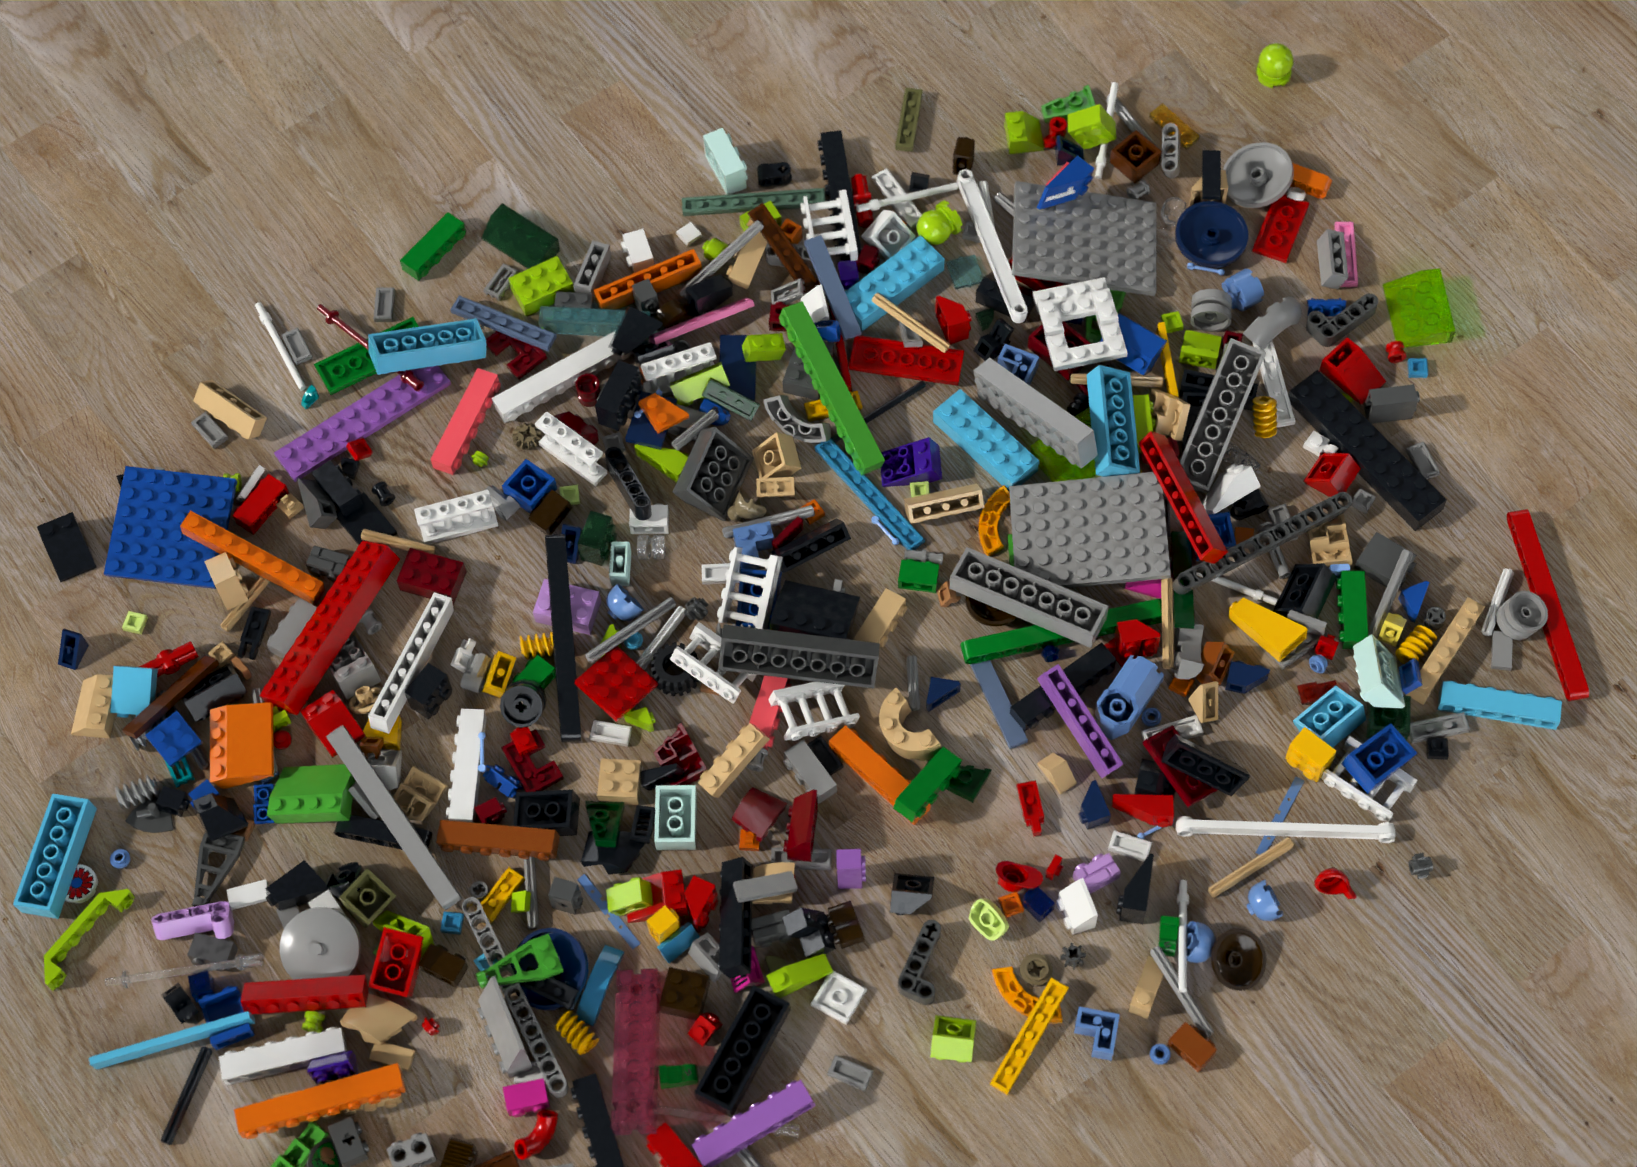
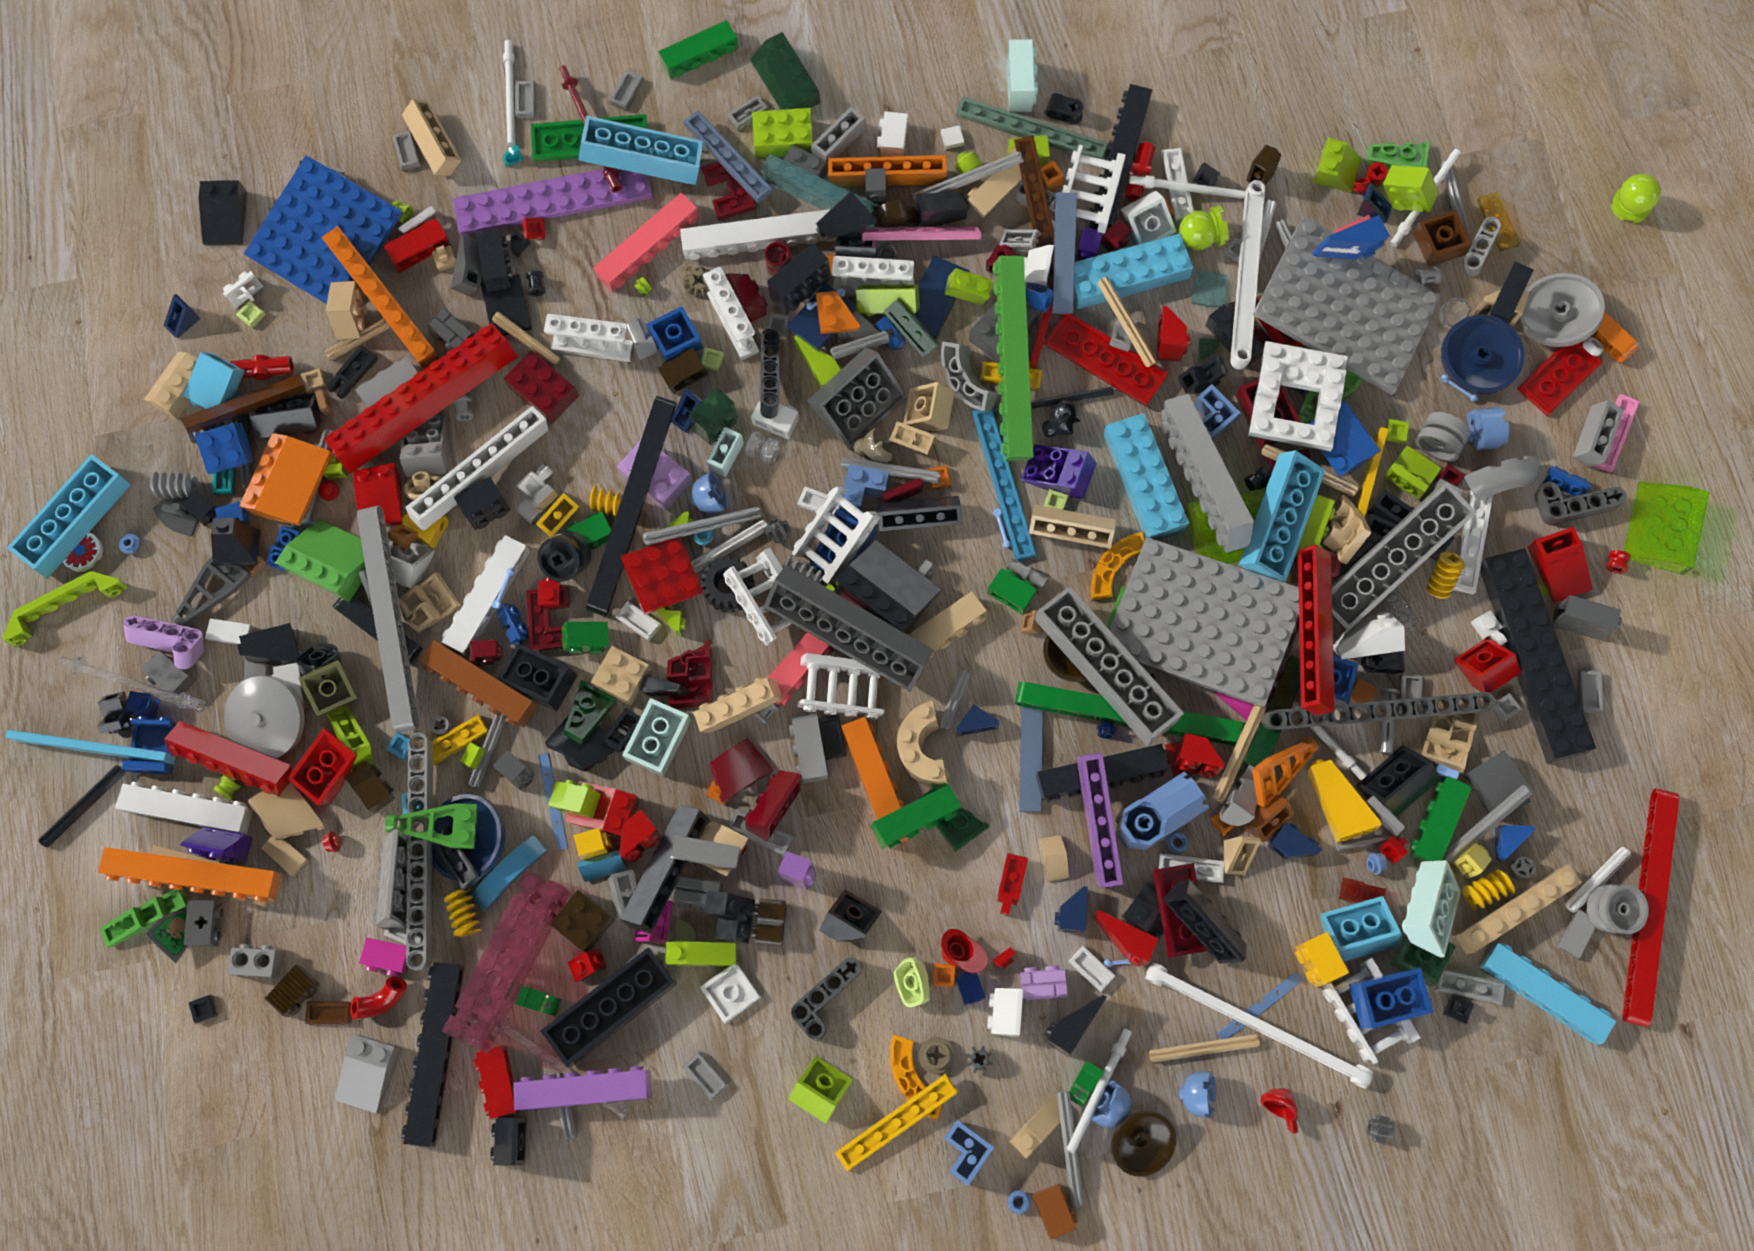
camera: 25 degrees right, 10 degrees up
(119, 604) = (242, 289): none -> white hips
(573, 762) = (585, 636): none -> green brick
(893, 423) = (1061, 419): none -> black piece
(909, 119) = (1227, 105): olive plate -> none
(1196, 629) = (1264, 774): none -> orange plate
(1410, 676) = (1466, 923): blue tile -> none
(1417, 368) = (1633, 588): dark azure tile -> none

